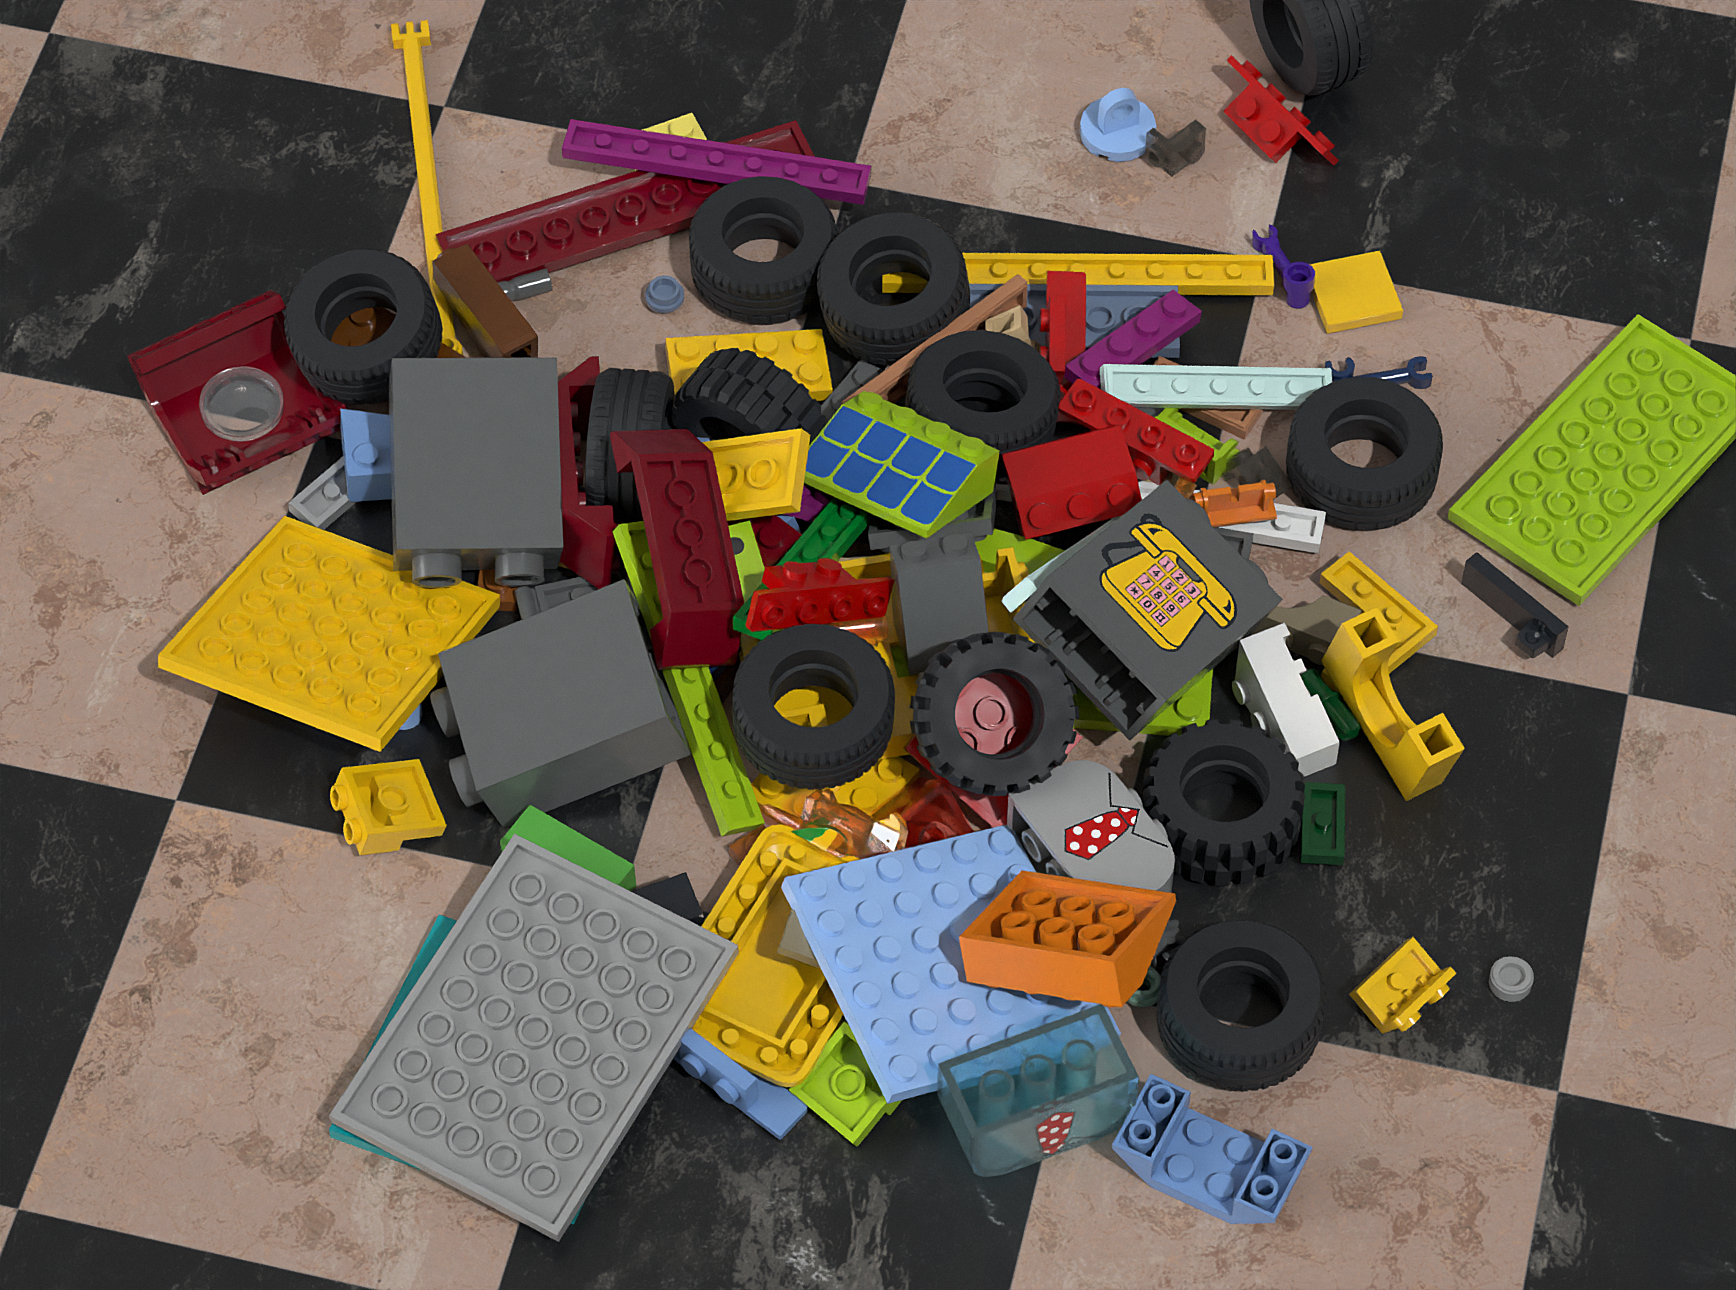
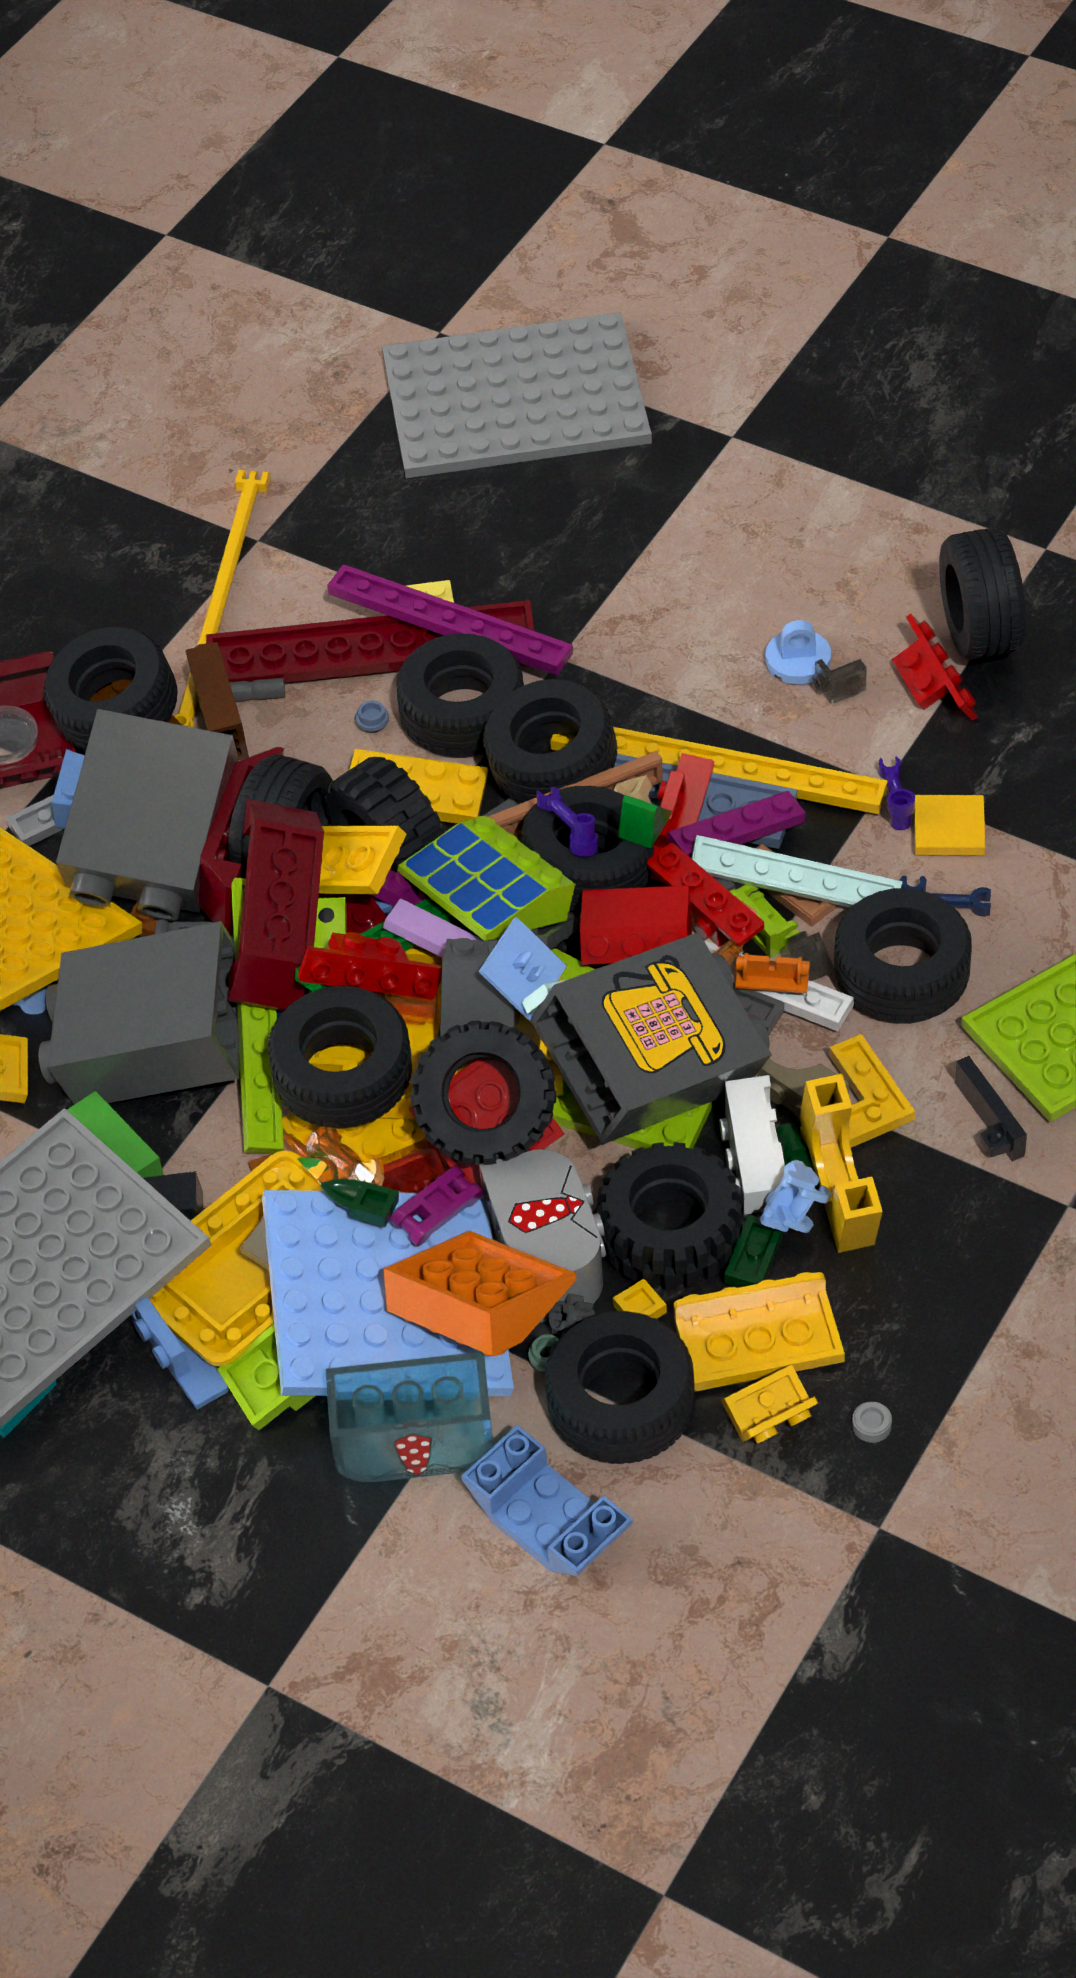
camera: 20 degrees right, 5 degrees down
(853, 538) = (423, 927): none -> lavender tile
(903, 863) = (363, 1199): none -> dark green plate
(973, 849) = (436, 1205): none -> magenta plate
(987, 560) = (520, 965): none -> light blue piece
(990, 396) = (583, 835): none -> dark purple brick
(1045, 363) = (641, 821): none -> green slope
(1221, 904) = (640, 1299): none -> yellow plate
(1352, 754) = (793, 1198): none -> light blue piece
(1363, 905) = (758, 1330): none -> yellow bracket

